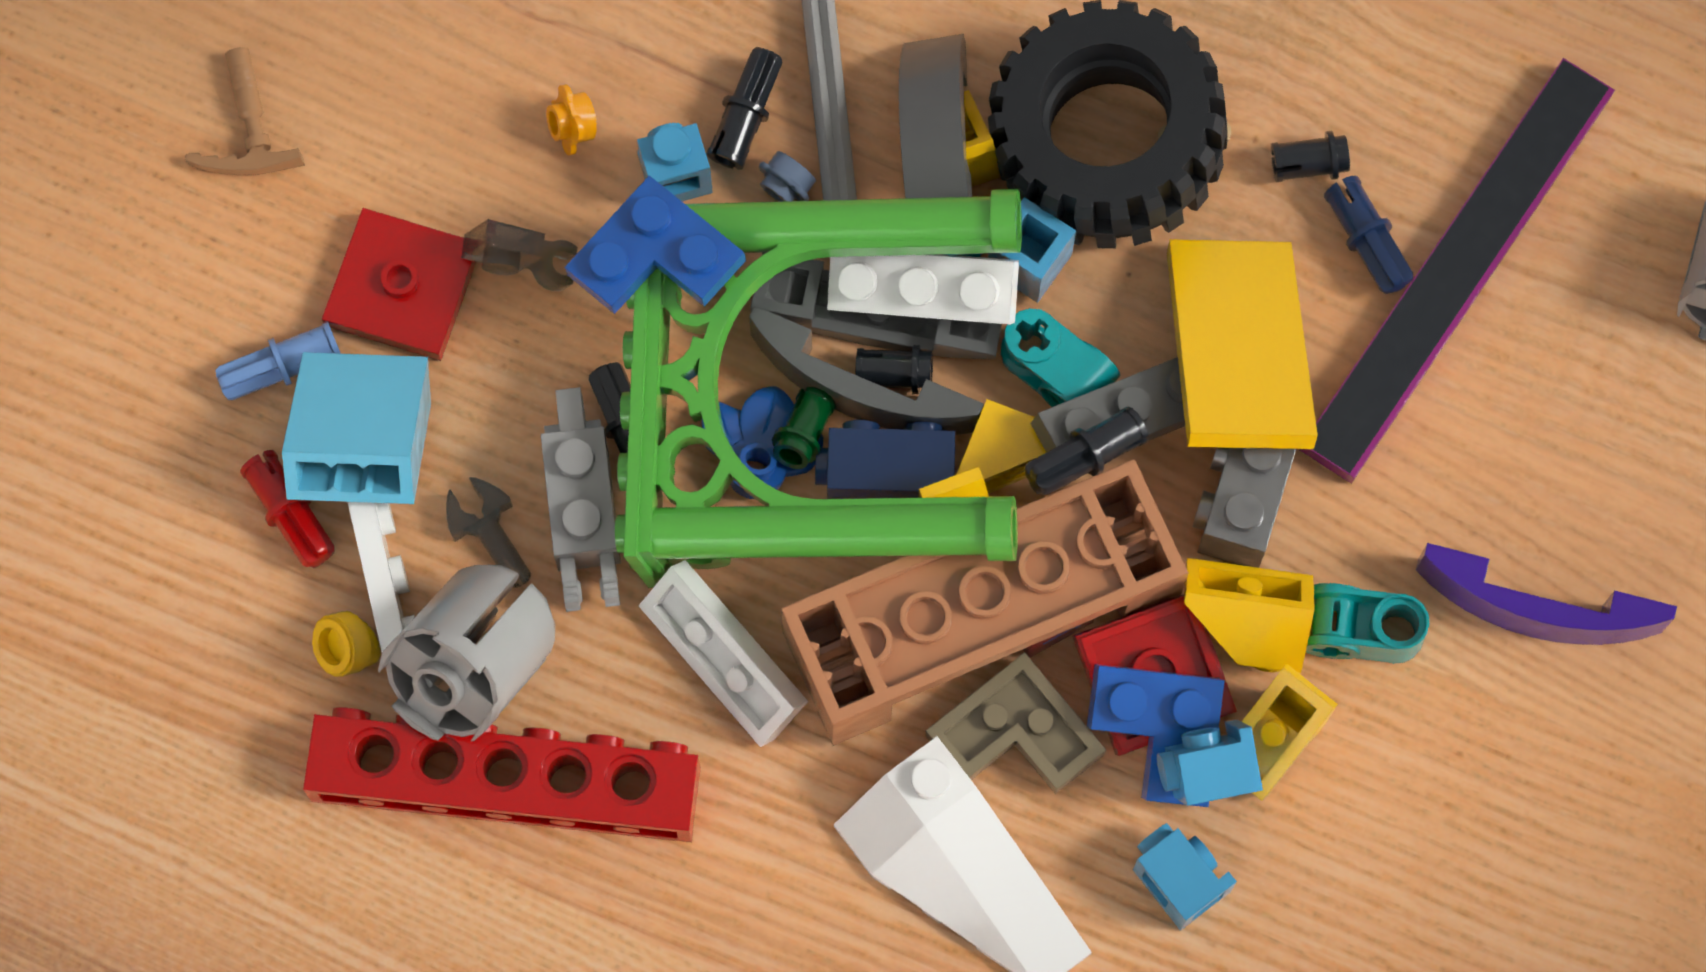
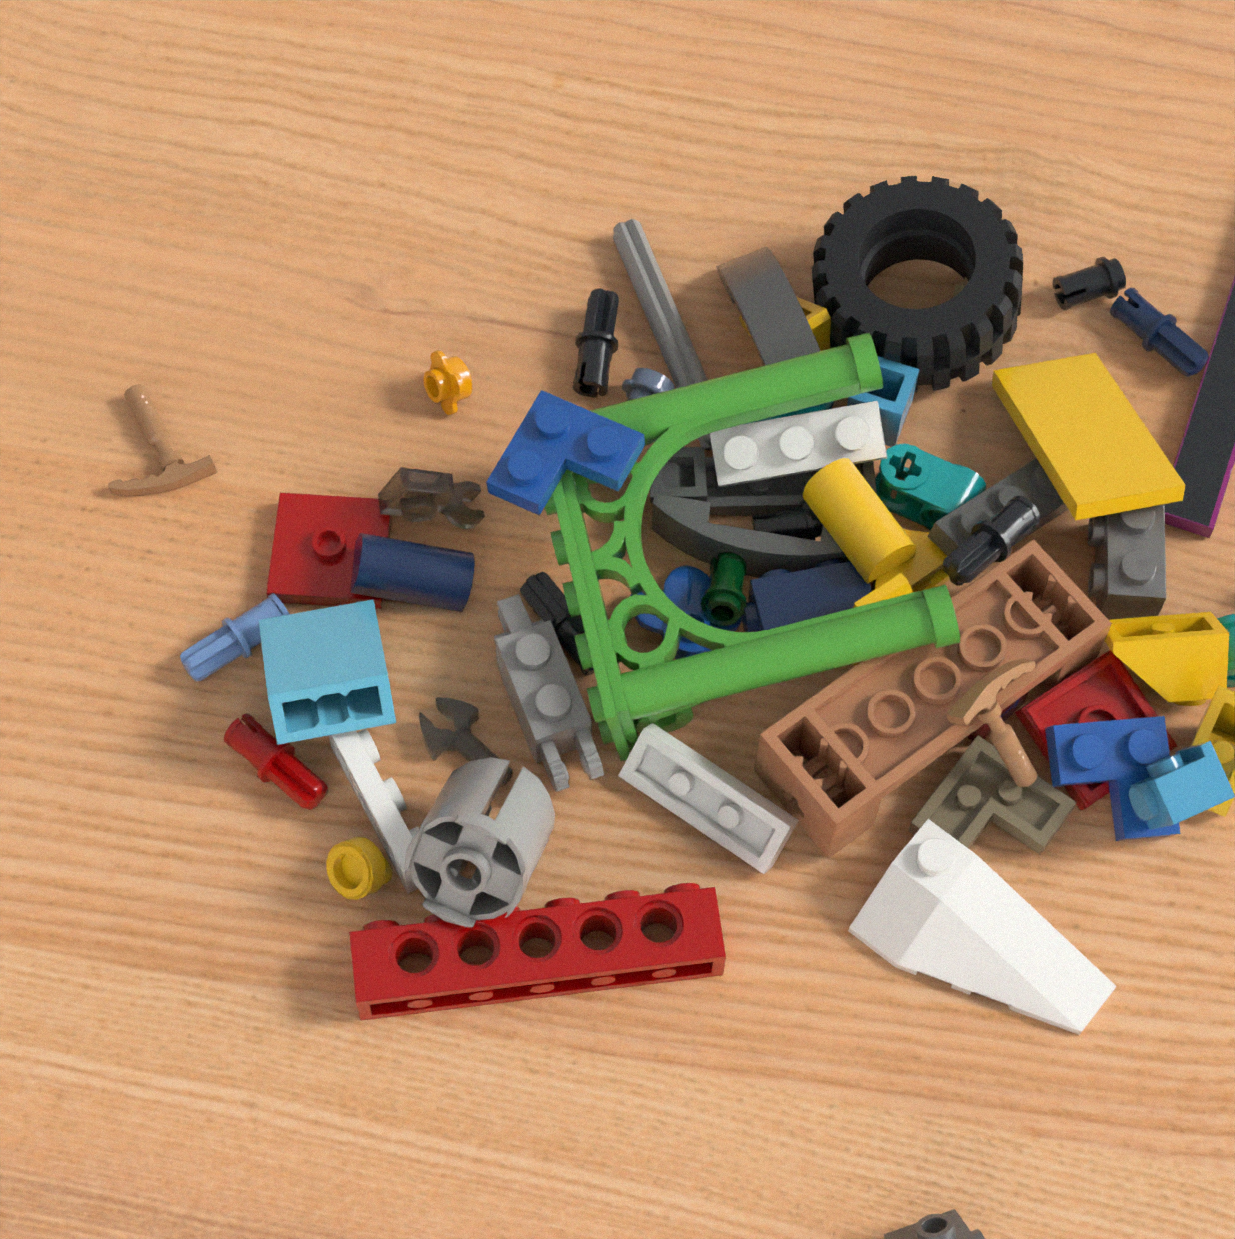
camera: 15 degrees left, 10 degrees down
(478, 332) = (412, 572): none -> dark blue brick
(673, 155) = (551, 376): dark azure brick -> none
(960, 388) = (858, 520): none -> yellow brick
(1019, 630) = (982, 701): none -> medium nougat piece
(1180, 874) = (1176, 897): dark azure brick -> none

